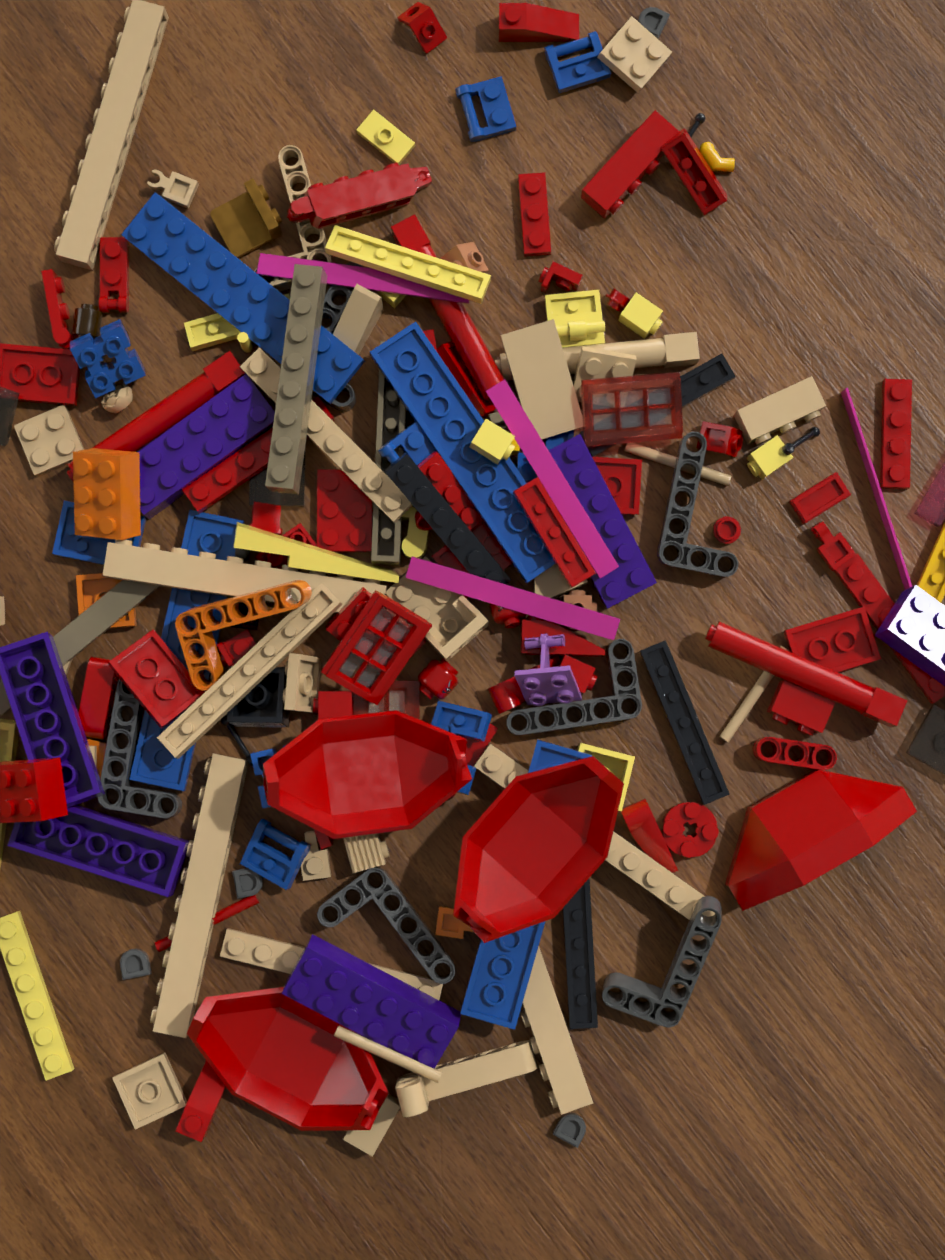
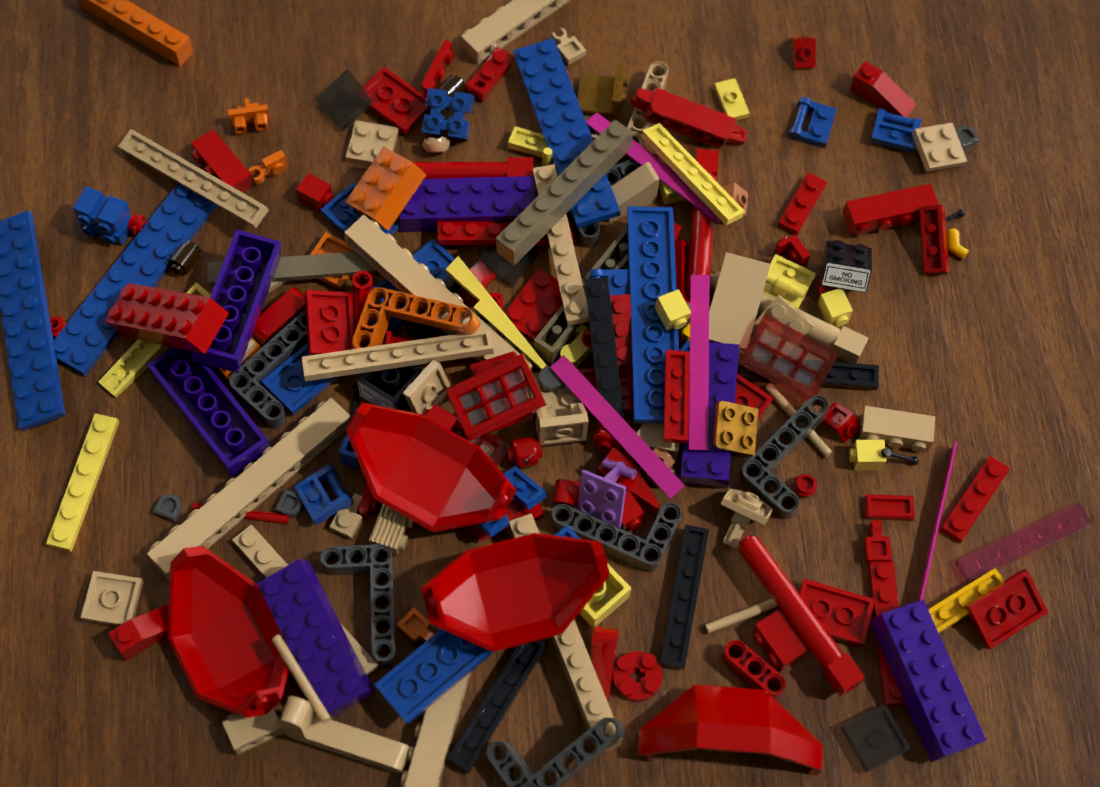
camera: 30 degrees right, 20 degrees down
(32, 538) = (314, 192): none -> red brick
(165, 627) = (360, 292): none -> red piece
(412, 589) = (549, 380): none -> dark grey tile
(627, 265) = (846, 266): none -> brick
(631, 525) = (735, 429): none -> pearl gold bracket
(688, 596) = (746, 507): none -> tan piece

